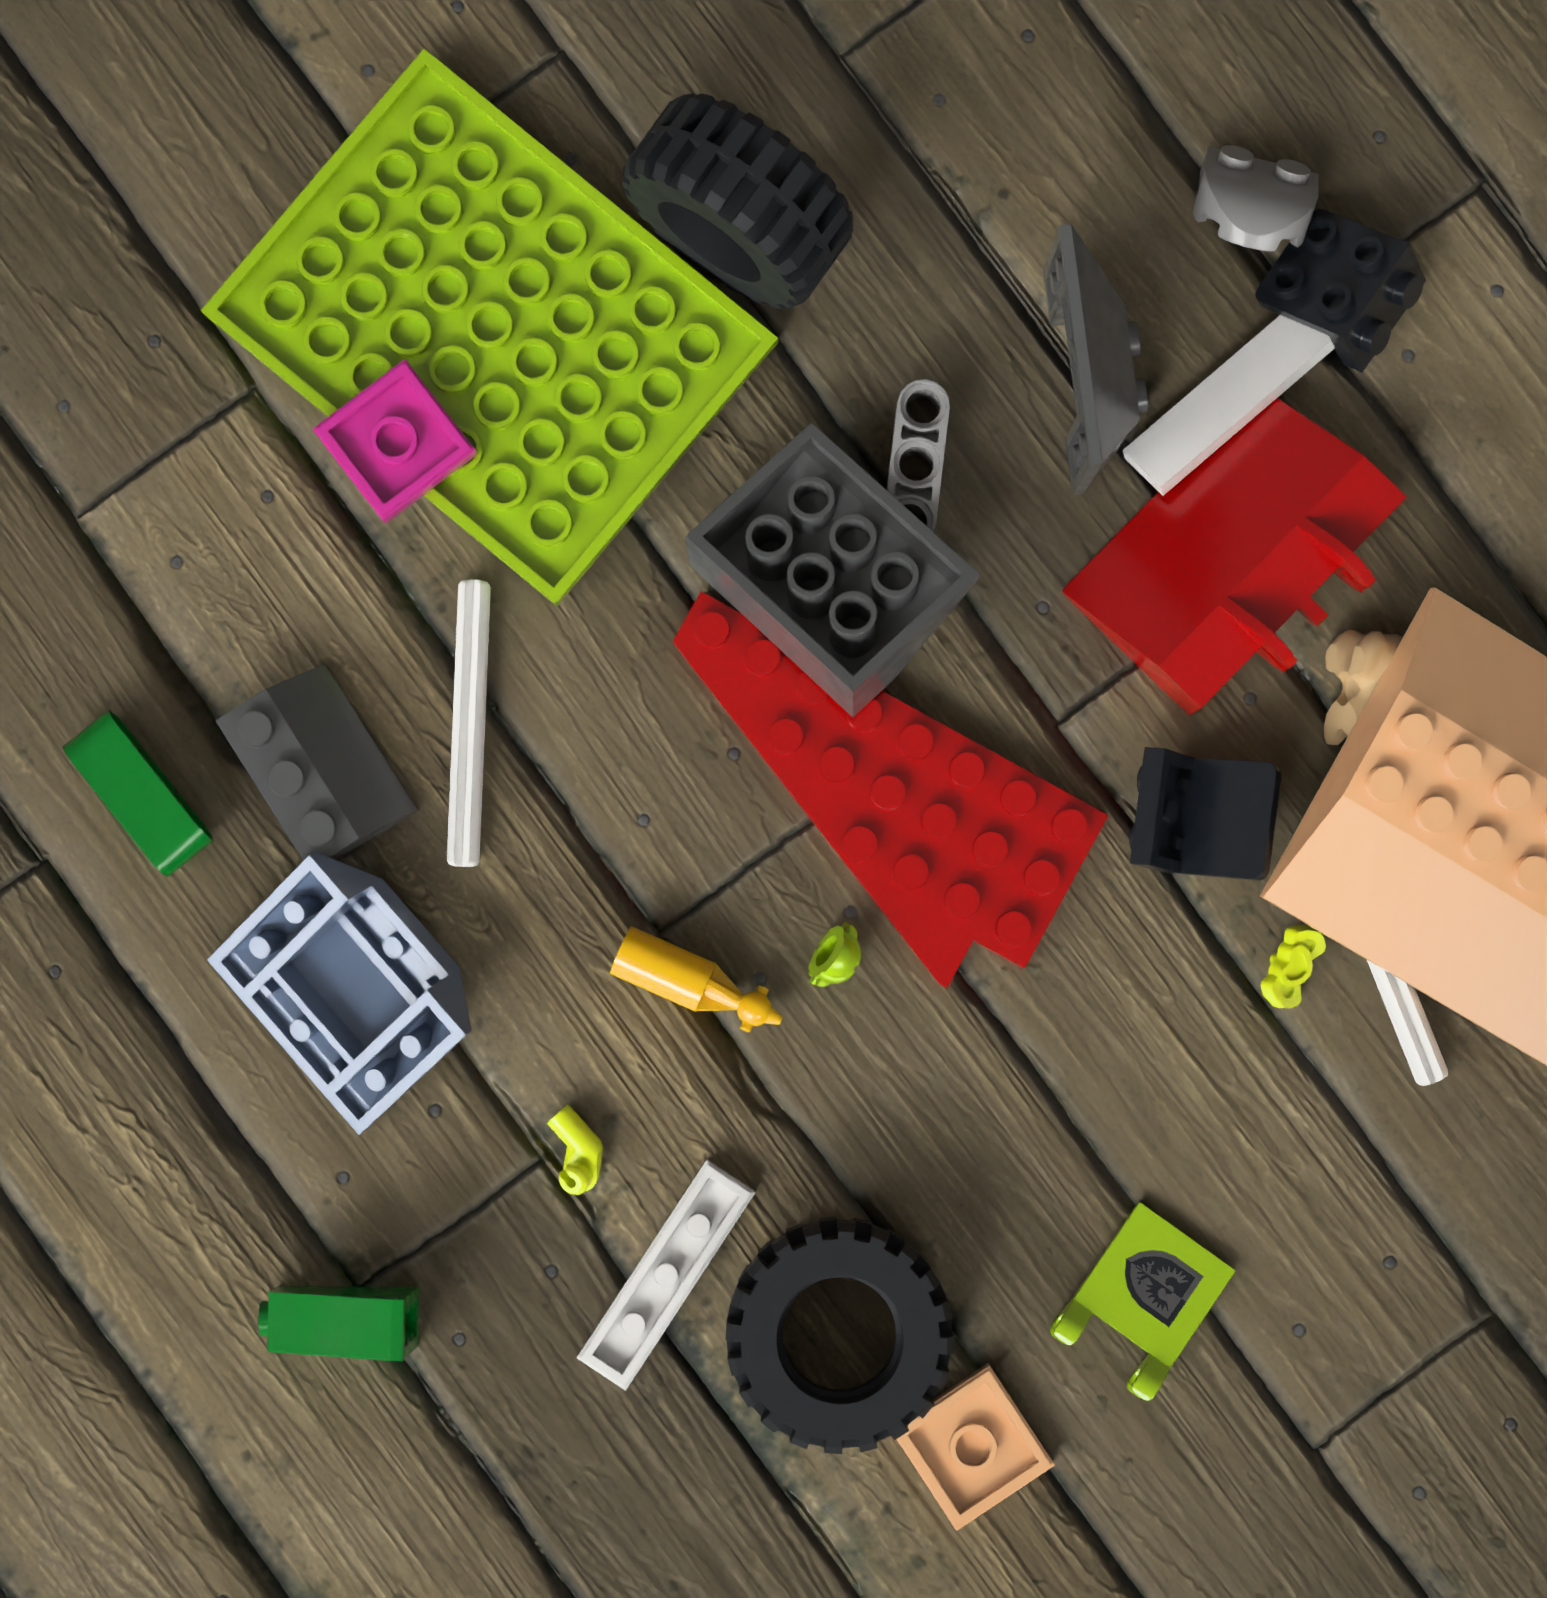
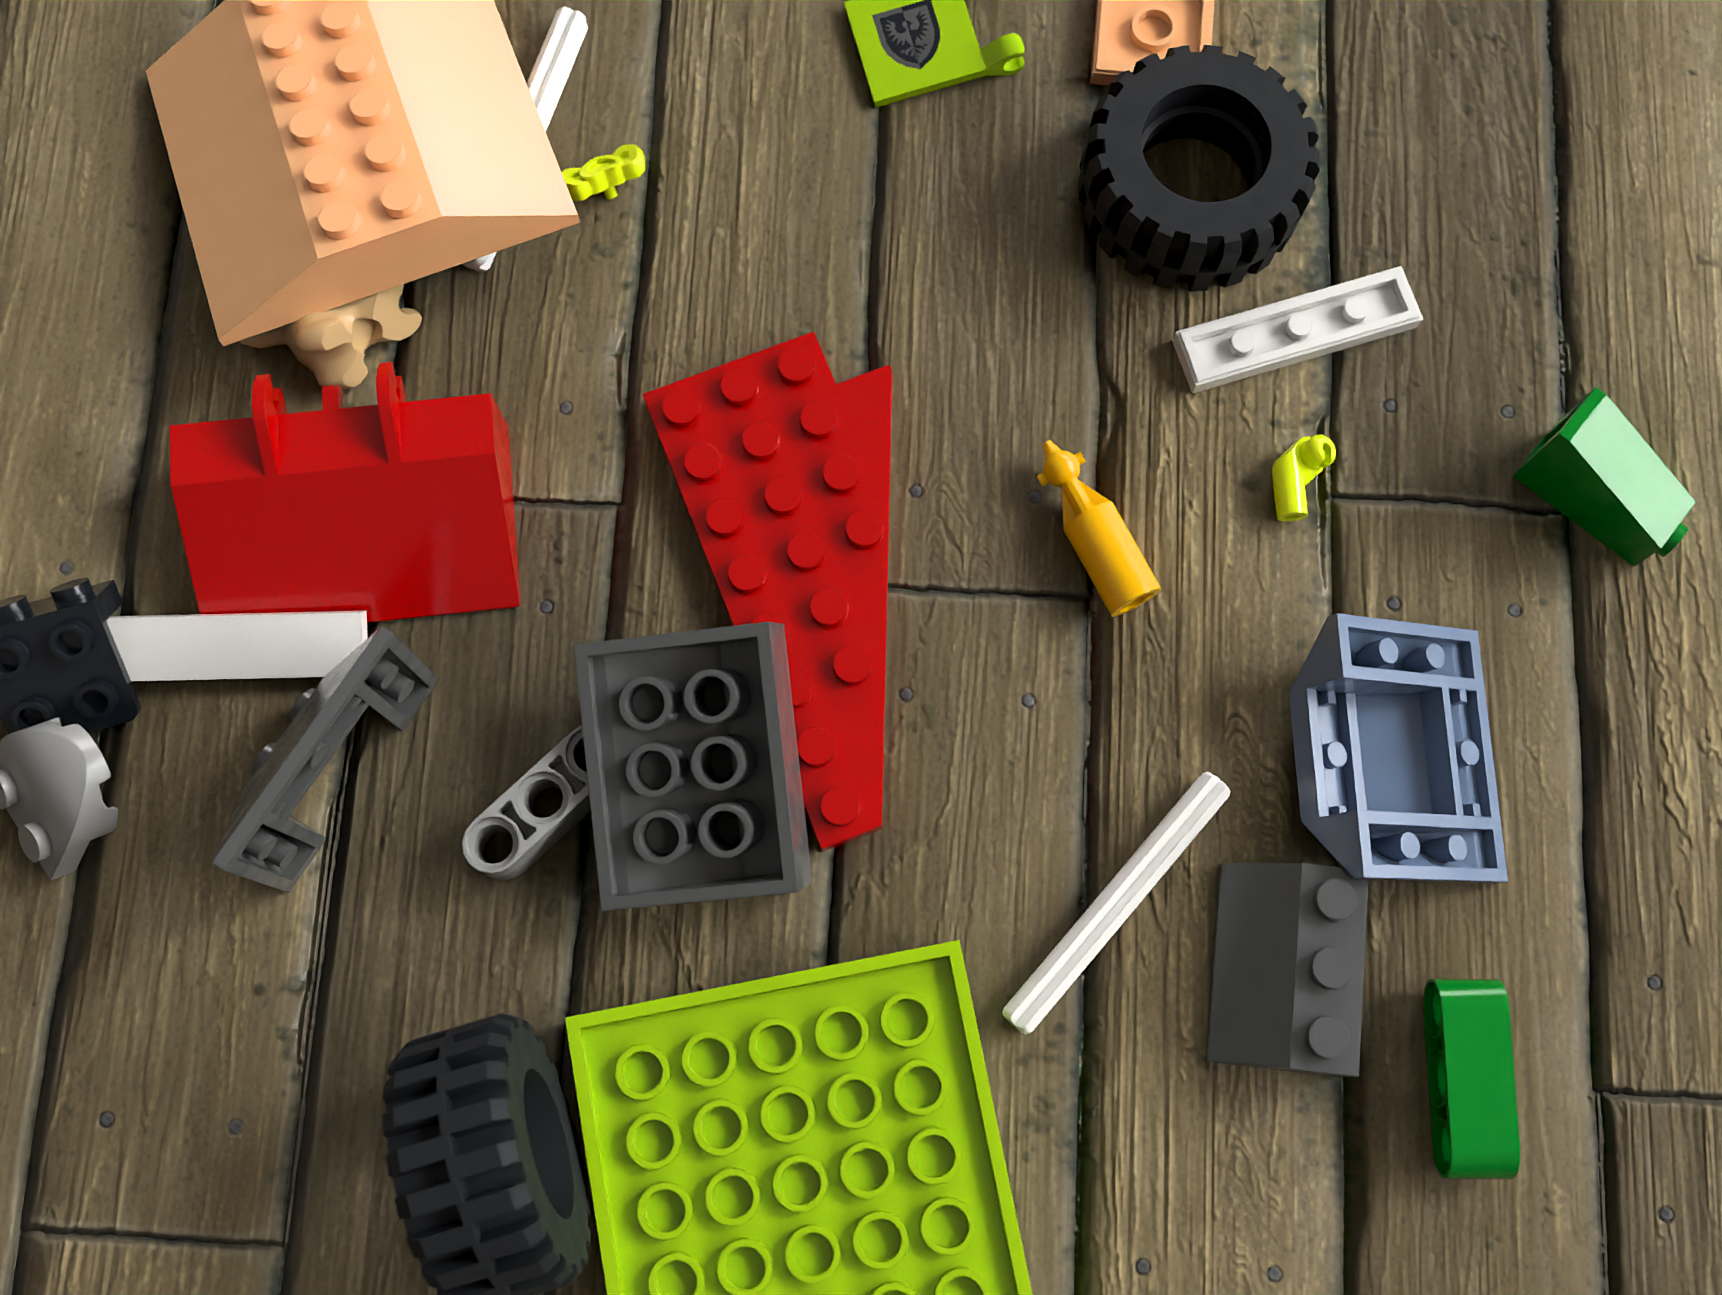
camera: 145 degrees left, 10 degrees down
(395, 441) = (989, 1212): dark pink tile -> none
(835, 956) = (960, 459): lime animal -> none
(1205, 815) = (564, 322): black bracket -> none

